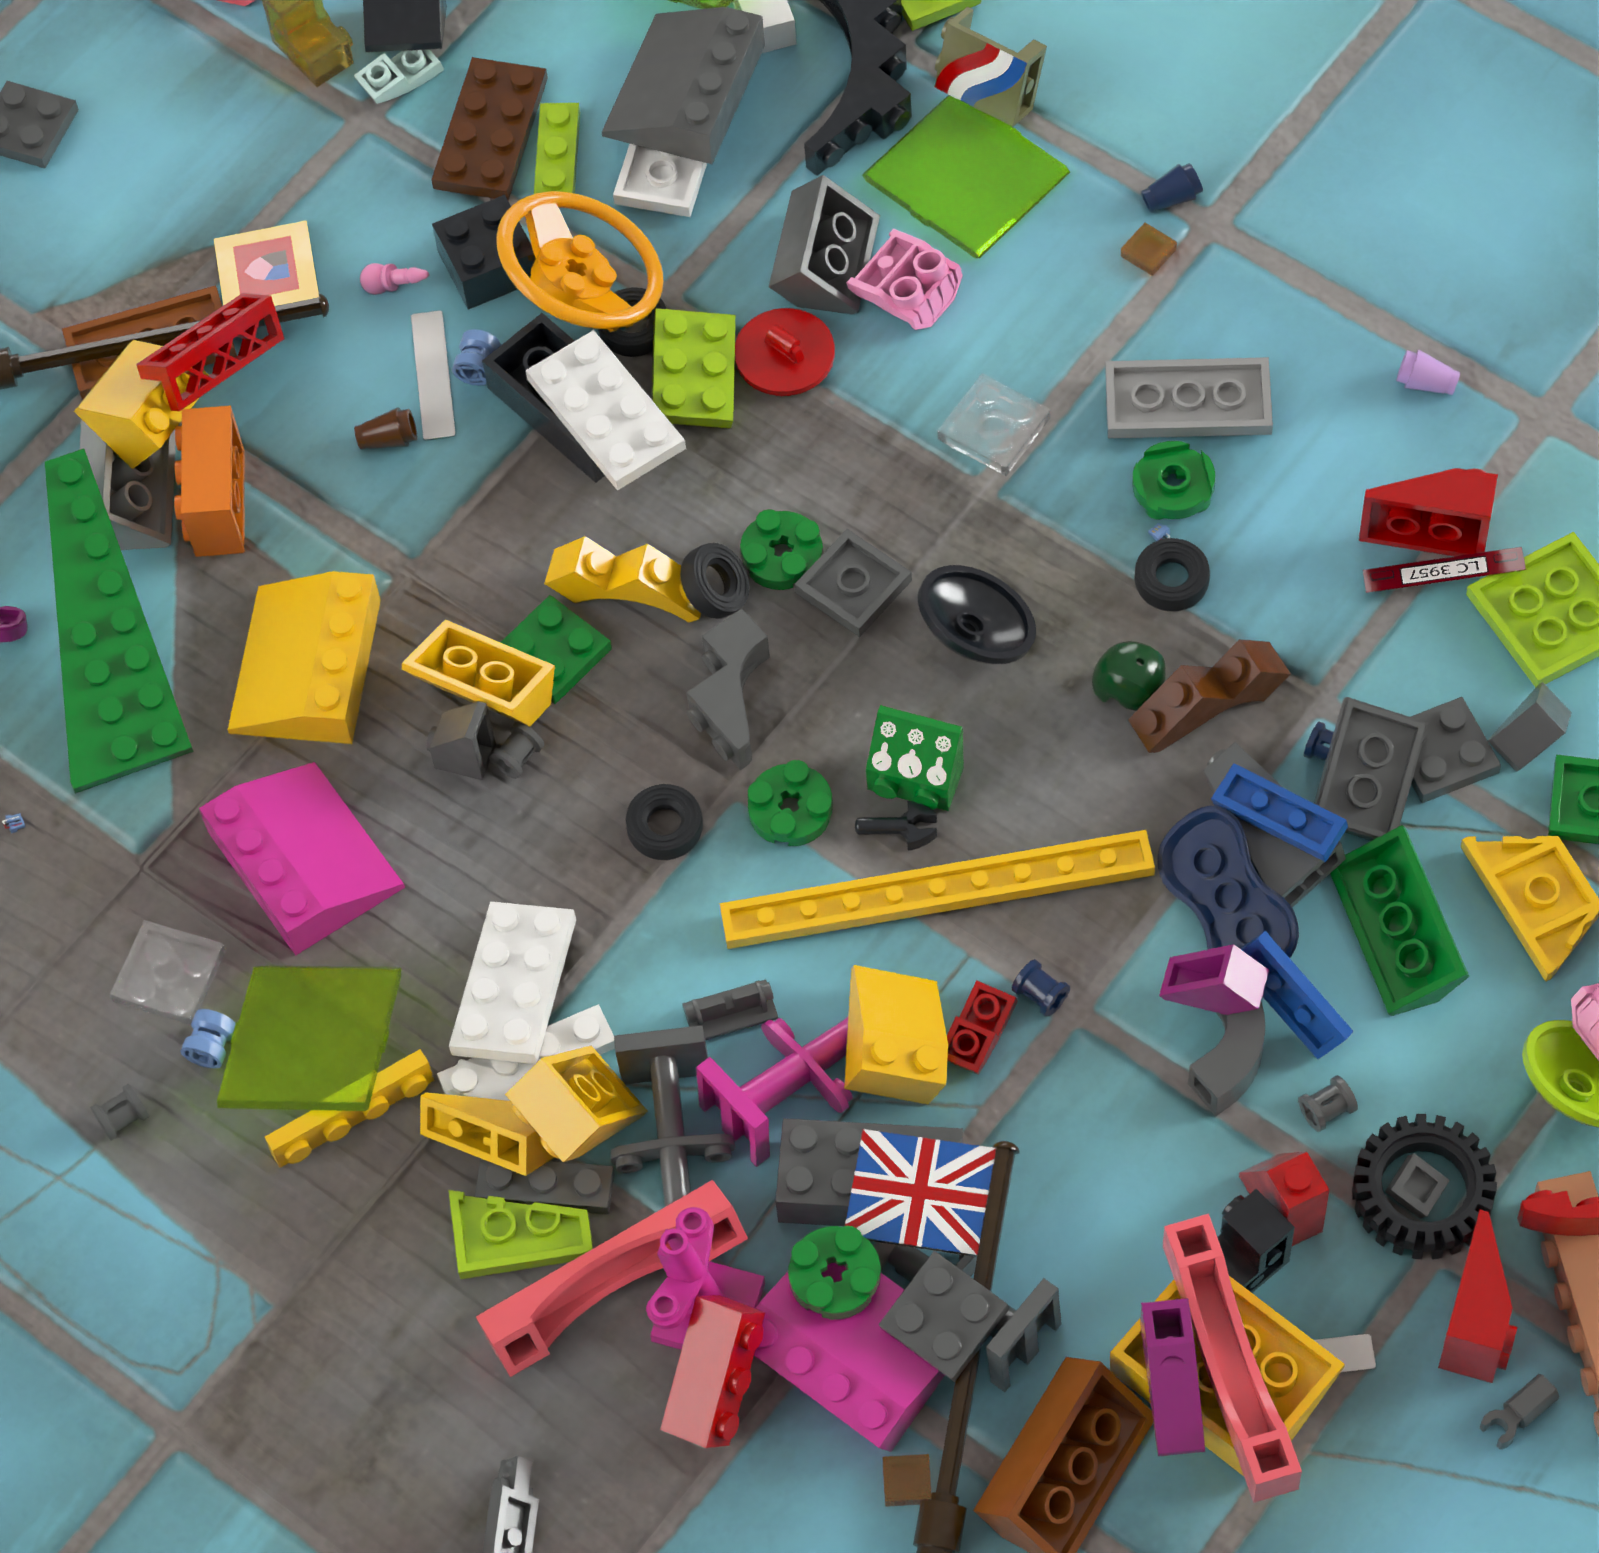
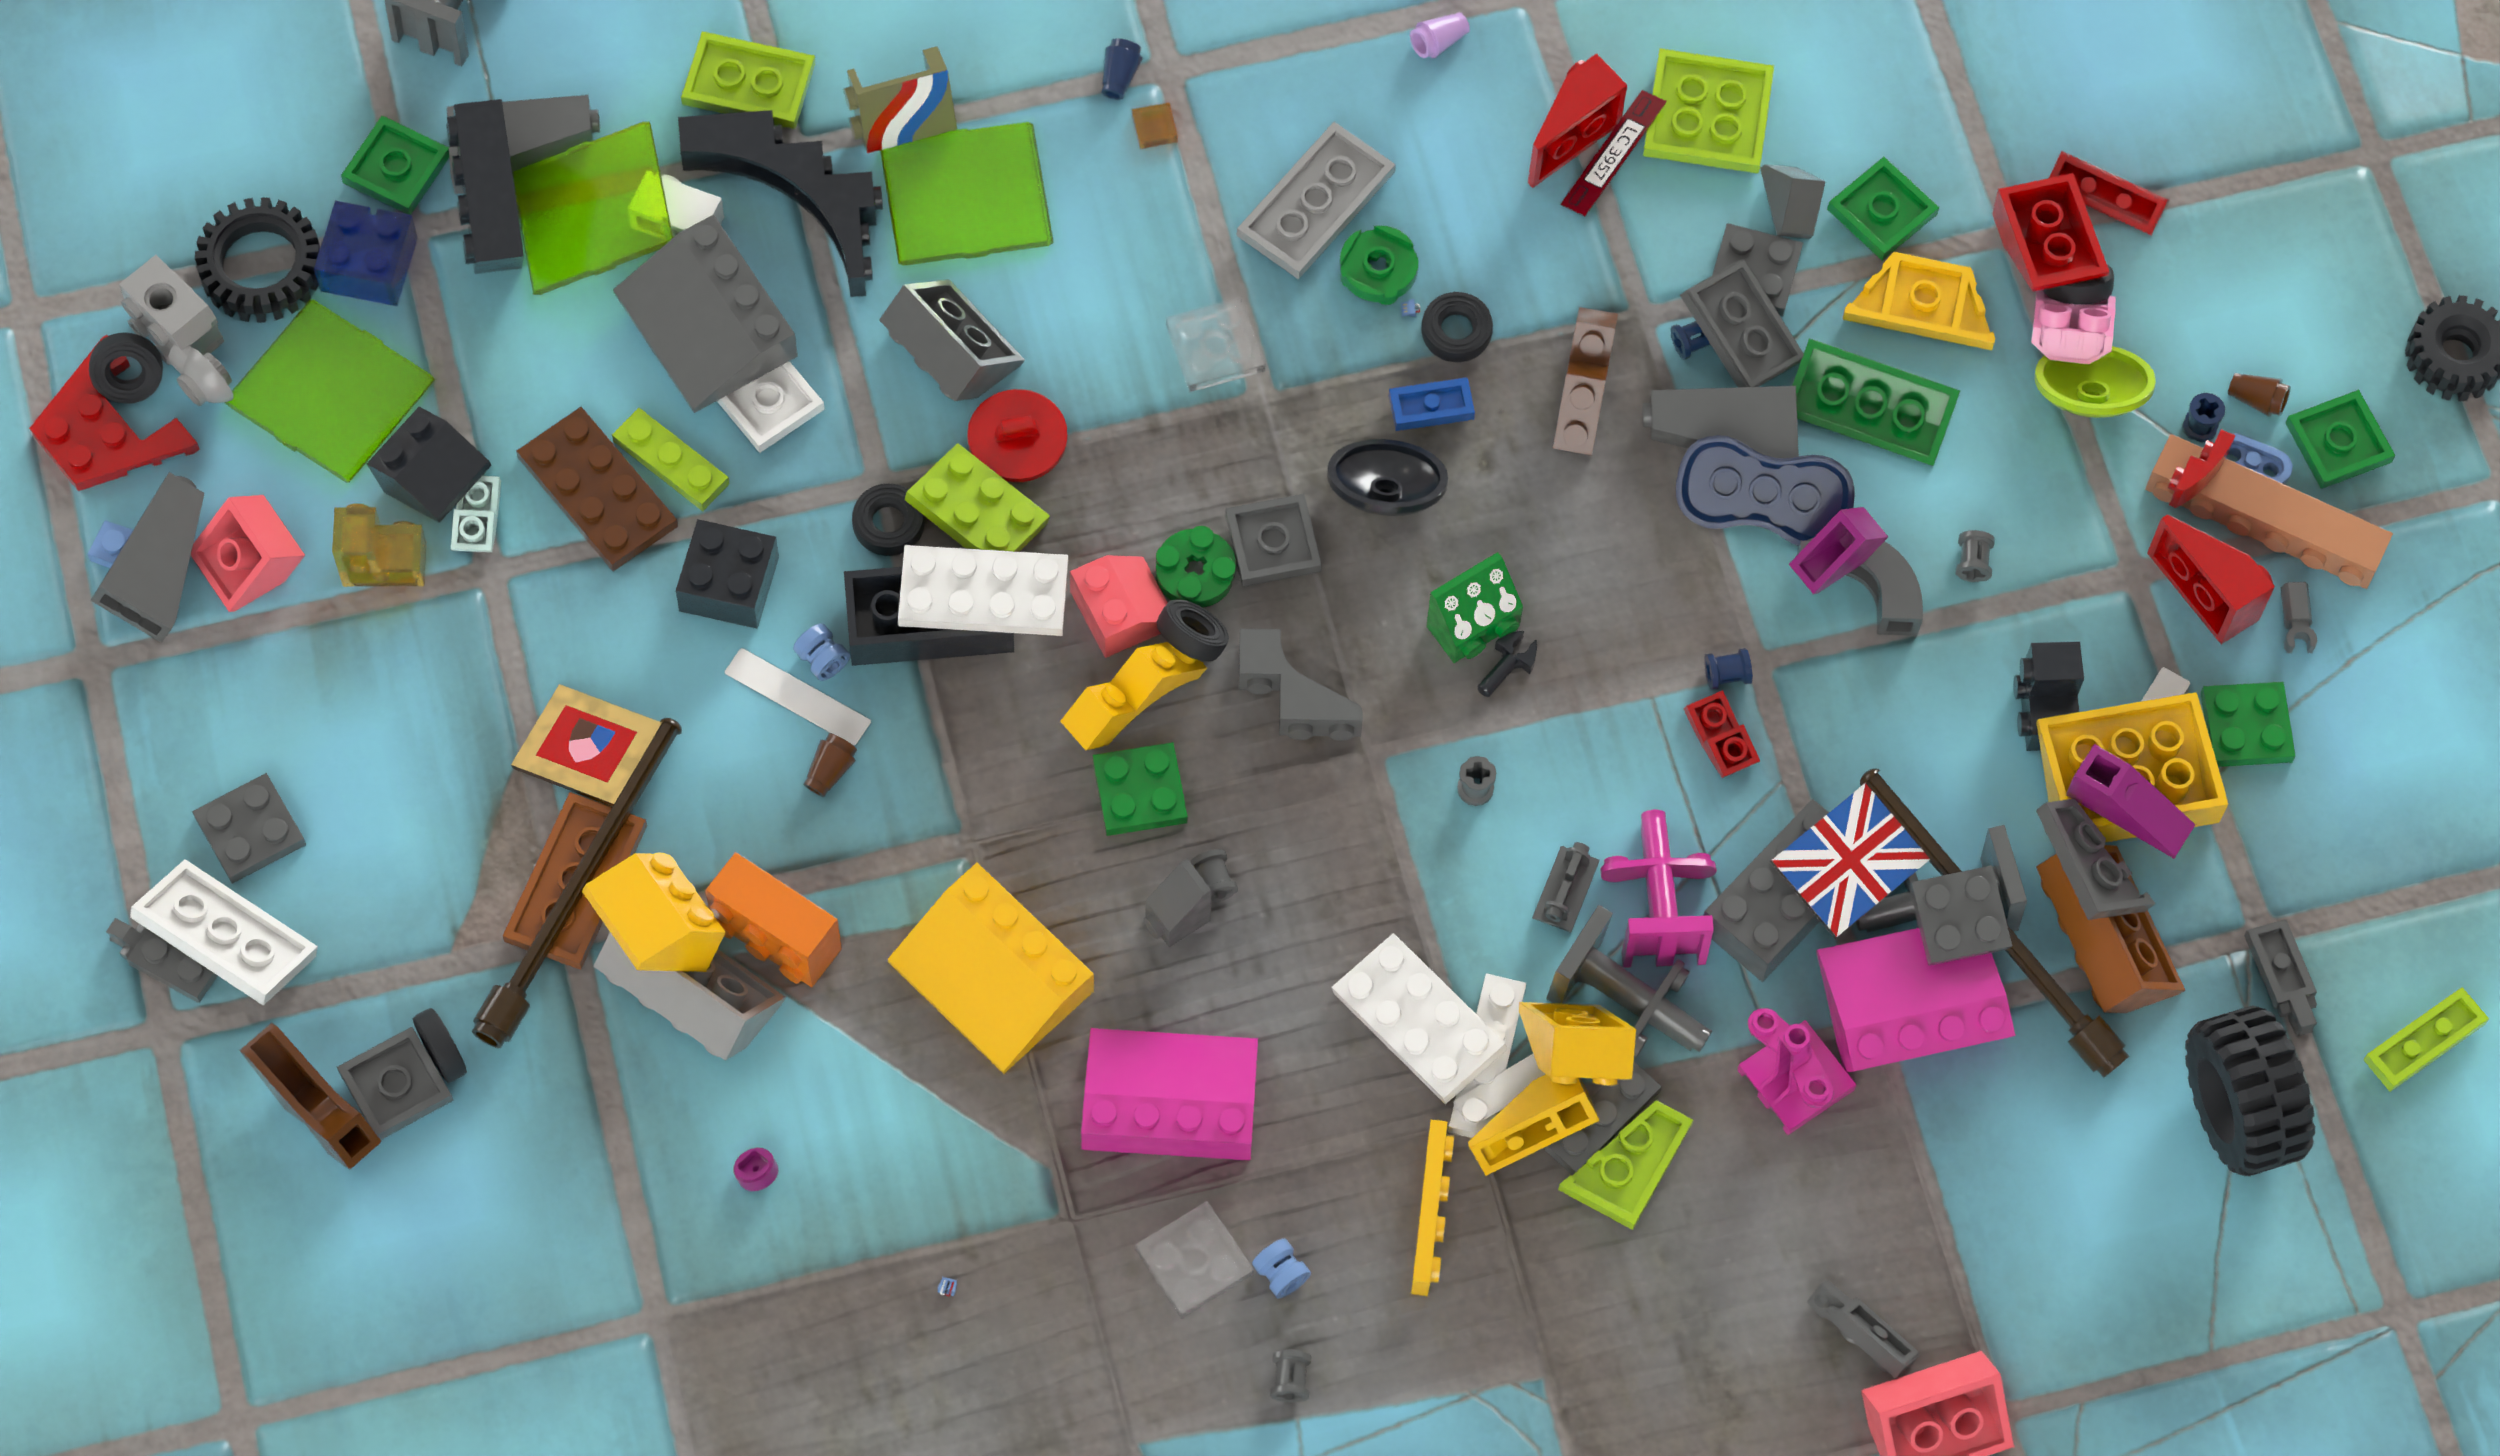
camera: 60 degrees left, 5 degrees up
(112, 676) = (890, 1117): green wing -> none
(213, 337) = (657, 828): red fence -> none
(310, 1038) = (1348, 1193): clear neon green piece -> none
(379, 278) = (668, 671): bright pink bar -> none
(483, 672) = (1136, 846): yellow slope -> none
(531, 1319) = (1716, 1208): coral arch -> none
(569, 272) = (820, 527): light orange piece -> none
(664, 846) = (1370, 795): black tyre -> none
(698, 510) = (1118, 601): none -> coral slope
(713, 1371) = (1873, 1100): brick -> none
(768, 872) = (1473, 793): none -> dark grey bush
(784, 782) = (1425, 700): green plate -> none
(823, 1295) = (1874, 940): green plate -> none
(895, 1036) = (1691, 789): yellow slope -> none
(906, 1479) = (2037, 1042): clear orange tile -> none
(909, 280) = (1027, 300): bright pink slope -> none
(937, 889) = (1585, 679): yellow plate -> none
(1081, 605) = (1431, 404): none -> blue plate
(1084, 1388) = (2093, 873): none -> dark grey wing
(1123, 679) = (1522, 417): dark green helmet -> none
(1244, 1401) = (2212, 780): coral arch -> none
(1280, 812) = (1741, 404): blue plate -> none
(1294, 1189) = (2030, 619): red slope -> none
(1297, 999) = (1893, 510): blue plate -> none
(1375, 1442) = (2248, 723): none -> green plate
(1417, 1185) = (2084, 549): dark grey plate -> none
(1423, 1137) = (2077, 586): black tyre -> none

